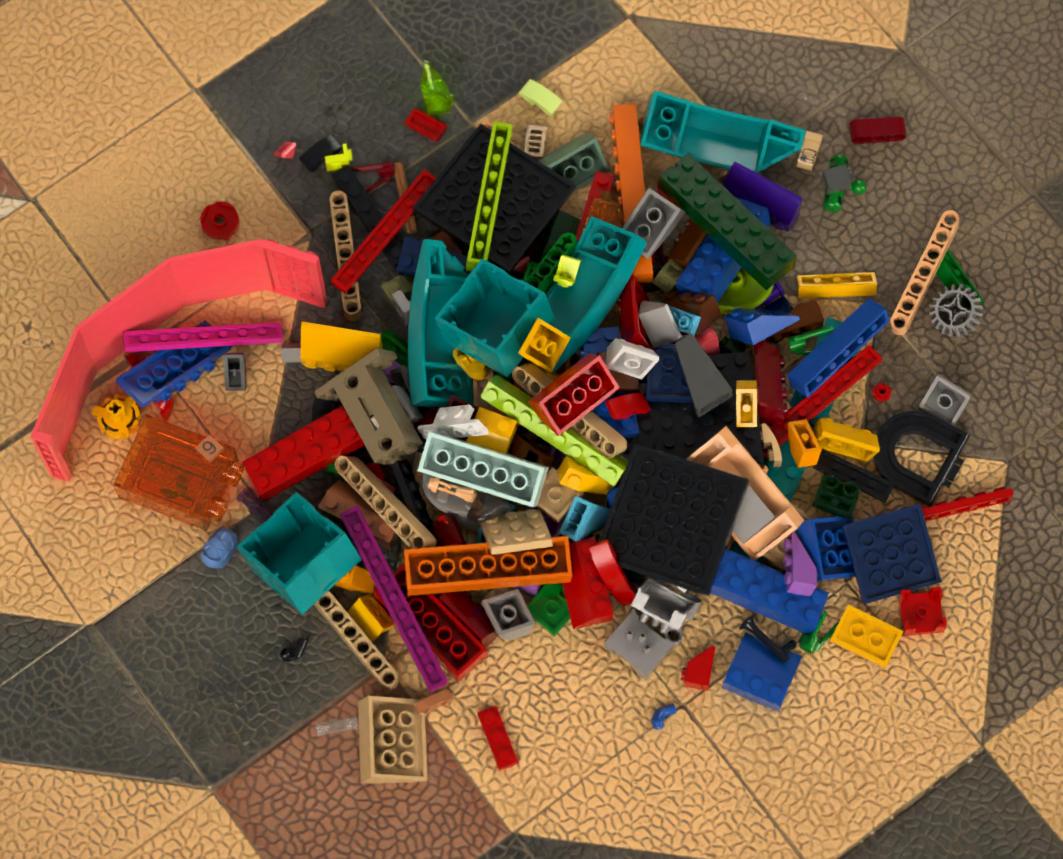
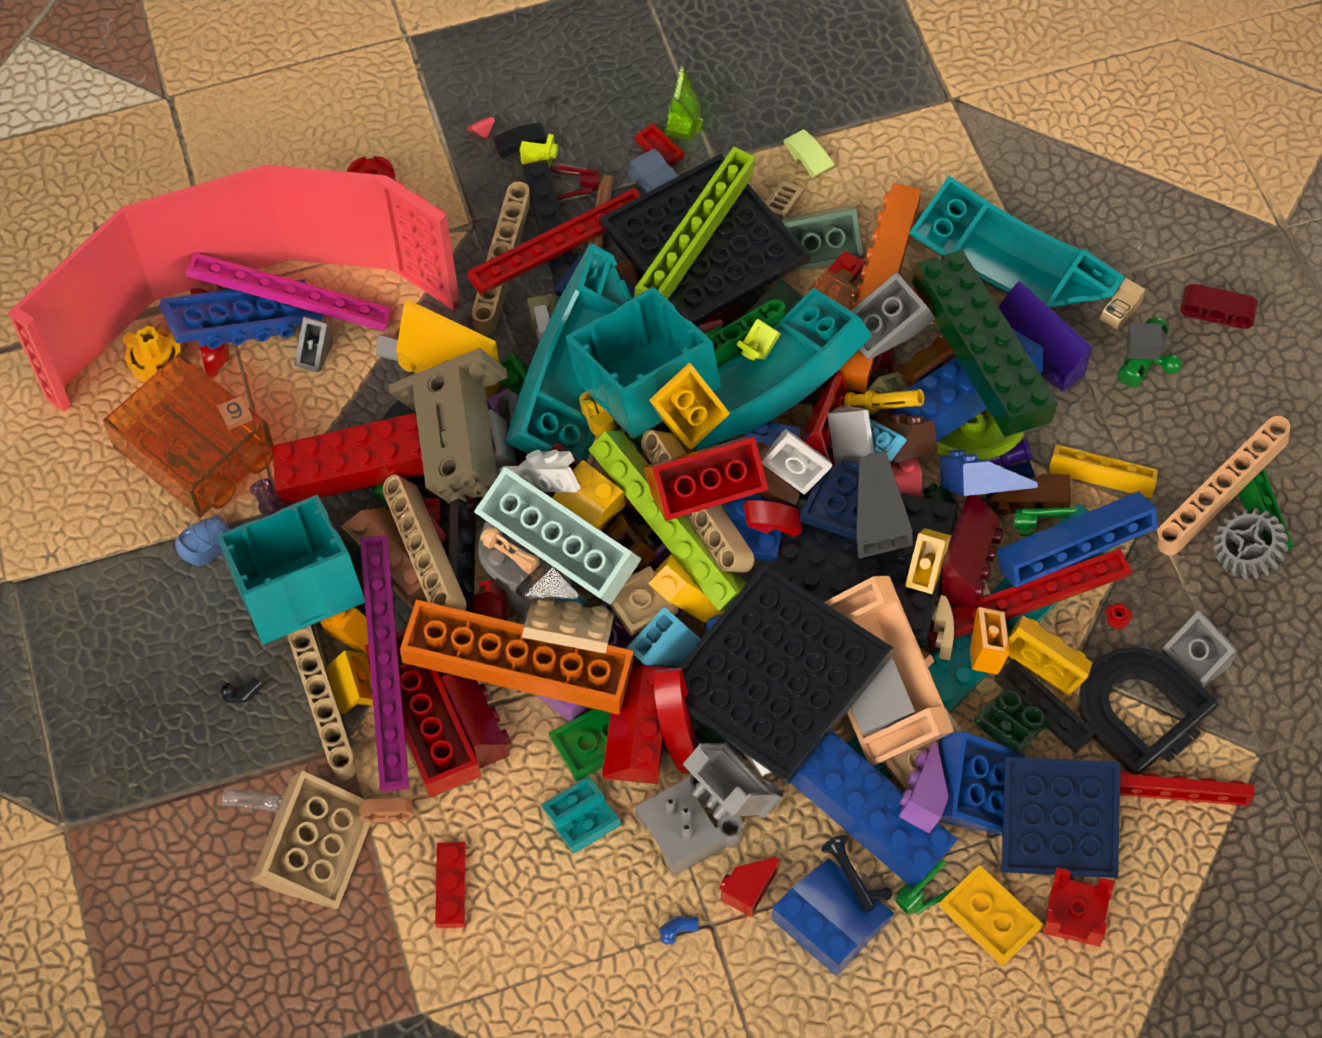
camera: 20 degrees right, 10 degrees down
(432, 152) = (650, 171): none -> sand blue brick
(509, 615) = (524, 732): light grey slope -> none
(567, 659) = (581, 815): none -> teal slope
(662, 290) = (873, 401): none -> yellow pin

